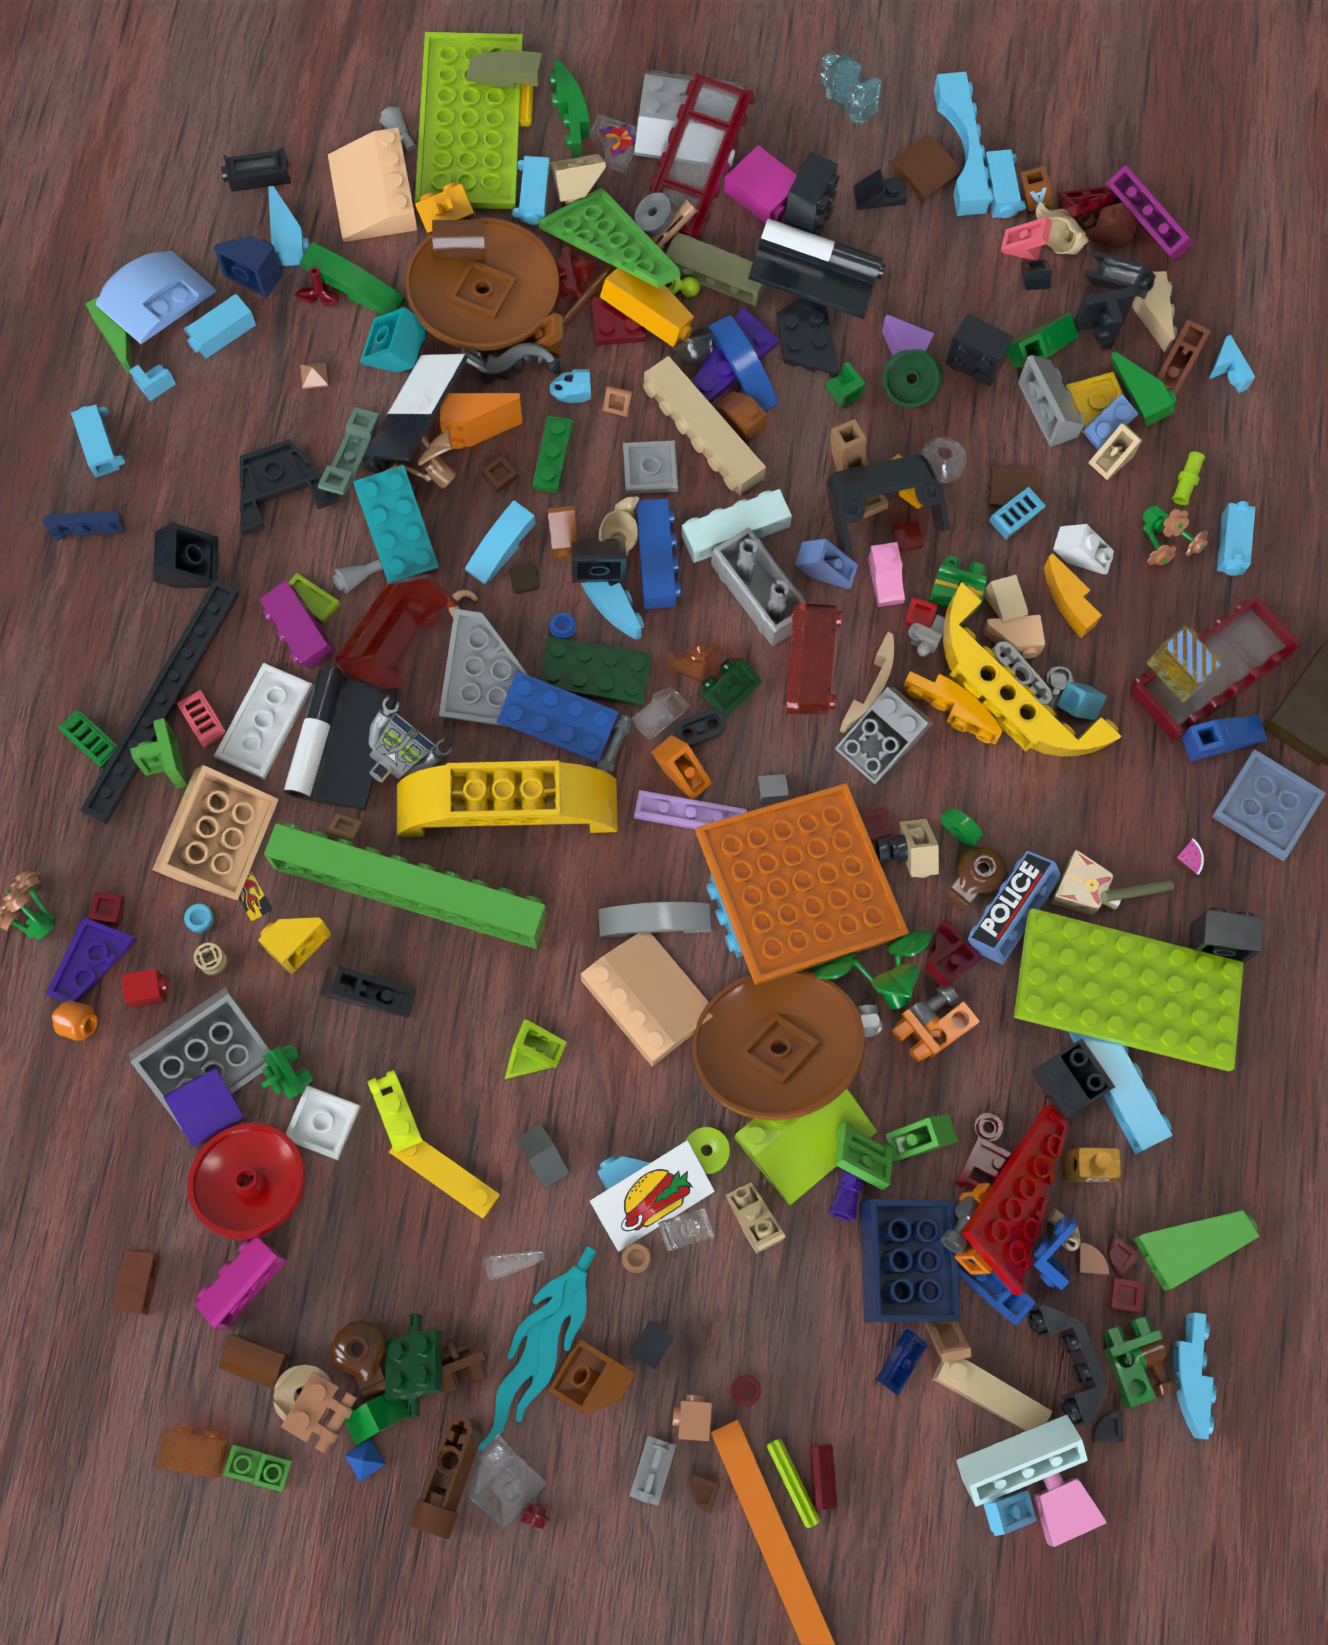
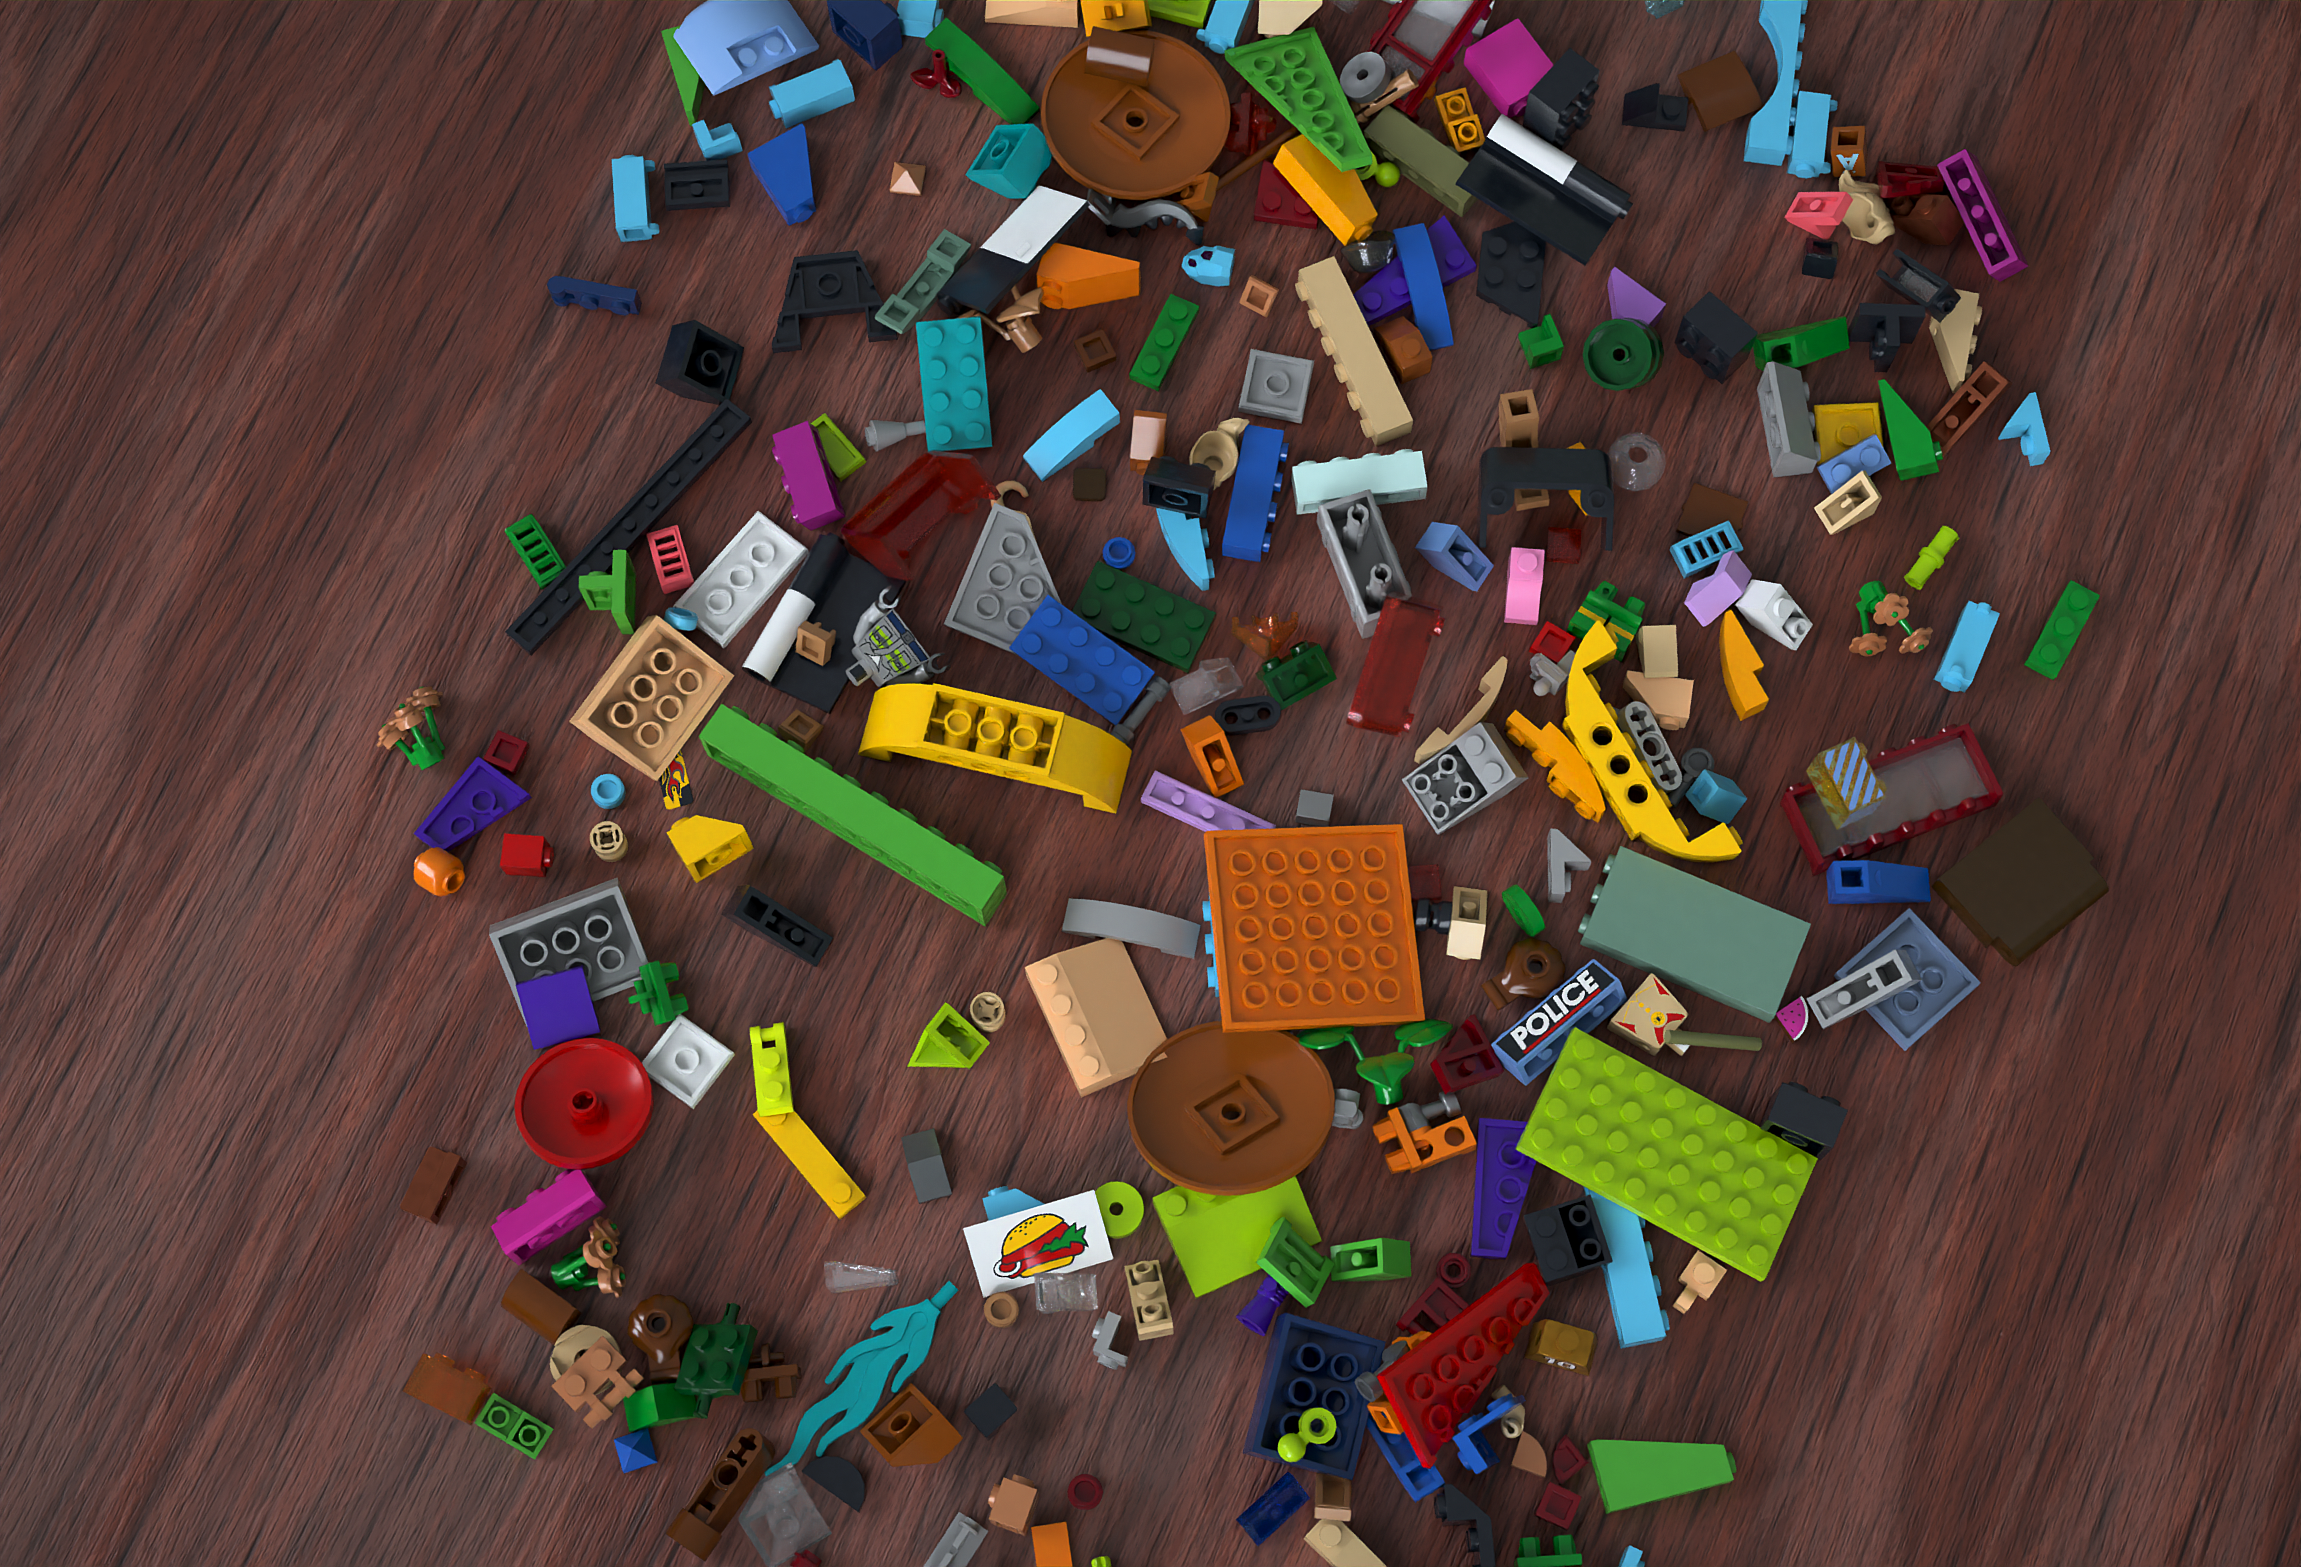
camera: 20 degrees right, 0 degrees up
(145, 418) = (697, 185): none -> black plate
(216, 393) = (786, 173): none -> blue slope
(223, 763) = (681, 618): none -> medium azure tile
(291, 1304) = (598, 1254): none -> plant
(338, 755) = (815, 642): none -> medium nougat tile
(541, 1435) = (839, 1478): none -> black tile
(559, 1013) = (984, 1006): none -> tan wheel
(726, 1254) = (1105, 1333): none -> light grey bracket
(733, 233) = (1459, 120): none -> light orange slope
(907, 1307) = (1293, 1446): none -> lime plate
(976, 777) = (1562, 856): none -> light grey slope
(1004, 1049) = (1499, 1186): none -> dark purple wing
(1037, 543) = (1717, 592): none -> lavender slope
(1097, 811) = (1693, 933): none -> sand green brick
(1181, 1082) = (1700, 1279): none -> light nougat plate
(1241, 820) = (1864, 988): none -> light grey slope
(1301, 509) = (2062, 630): none -> green plate

